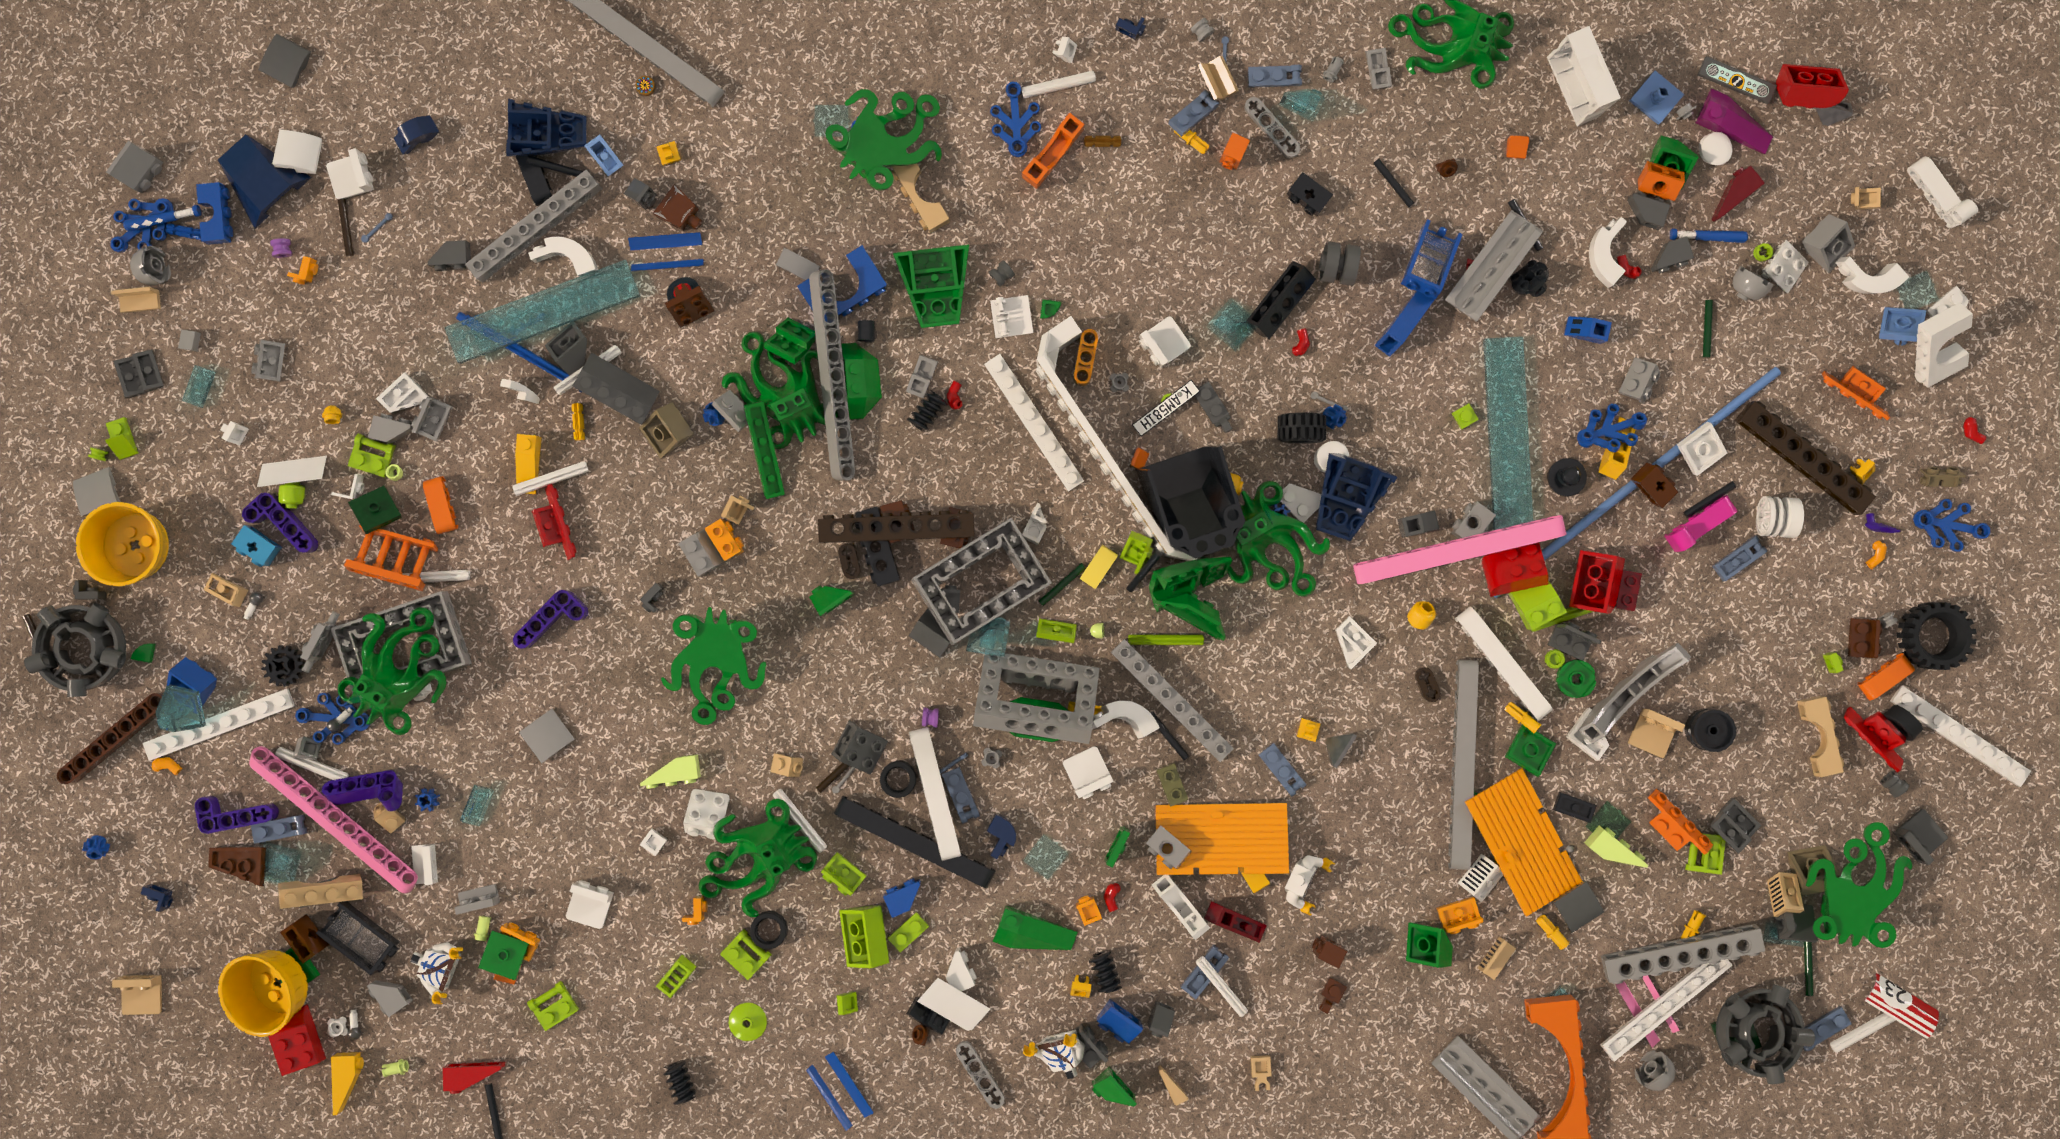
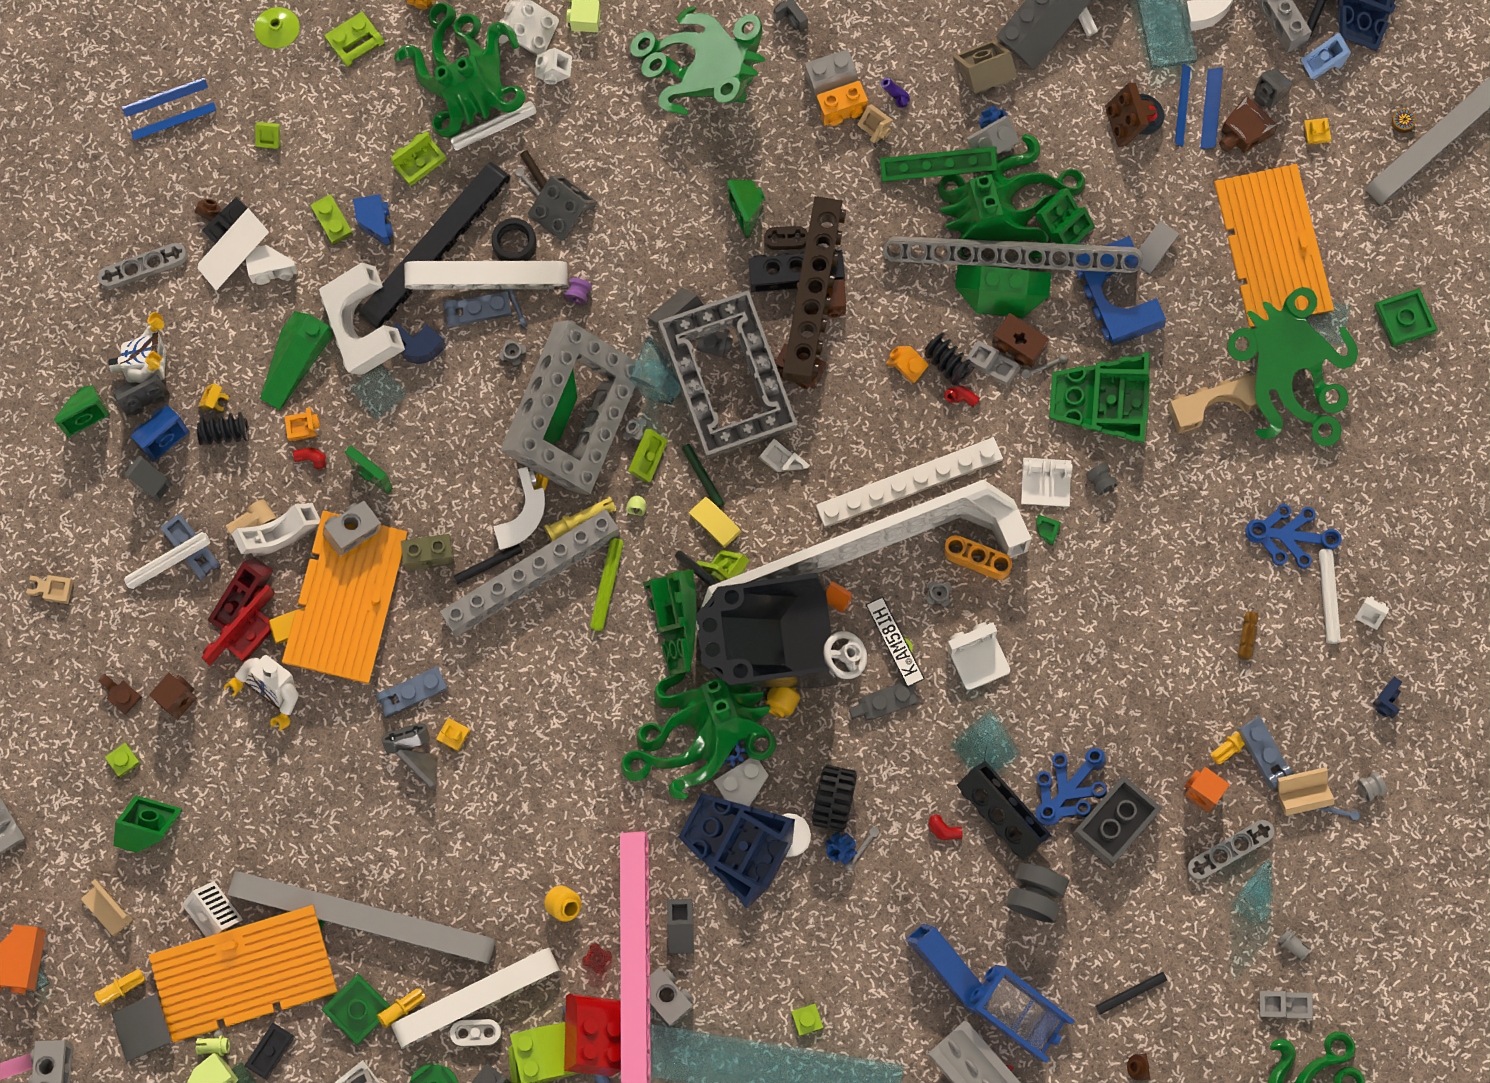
camera: 105 degrees right, 15 degrees down
(703, 498) = (896, 92): none -> dark purple arm
(739, 783) = (553, 66): none -> white brick
(754, 930) = (376, 83): black tyre -> none
(775, 172) = (1272, 239): none -> light orange door
(786, 765) = (560, 123): tan bracket -> none
(817, 59) = (1405, 317): none -> green plate
(864, 936) = (339, 169): lime slope -> none
(866, 331) = (1058, 305): black piece -> none
(900, 346) = (1014, 330): none -> reddish brown brick
(906, 322) = (1027, 373): none -> light grey hinge
(936, 443) = (907, 362): none -> light orange bracket
(981, 905) = (340, 301): none -> white arch
(1032, 641) = (635, 429): none -> light grey plate
(1053, 152) = (1229, 554): orange arch -> none
(1088, 772) = (466, 458): white bracket -> none
(1125, 680) = (568, 523): none -> light yellow pin
(1172, 925) = (256, 515): none -> tan piece
(1175, 1091) = (61, 480): tan slope -> none
(1184, 434) = (854, 648): none -> white piece
(1194, 612) = (632, 619): green wedge -> none
(1253, 255) = (1068, 789): none -> blue plant
(1264, 908) = (245, 632): none -> red bracket
(1271, 214) = (1116, 821): none -> dark grey brick
(1274, 76) = (1297, 867): sand blue plate -> none
(1306, 185) = (1129, 890): black brick -> none
(1320, 765) = (405, 738): none -> dark grey beam
(1353, 641) = (550, 813): white wing -> none
(1382, 978) = (122, 760): none -> lime plate
(1431, 682) = (472, 889): dark brown beam -> none
(1459, 578) = (594, 951): none -> clear red plate
(1459, 915) = (172, 871): light orange bracket -> none
(1528, 657) = (475, 1033): none -> white plate
(1554, 659) = (466, 1068): lime tile -> none
(1580, 849) = (213, 1045): none -> yellowish green pin

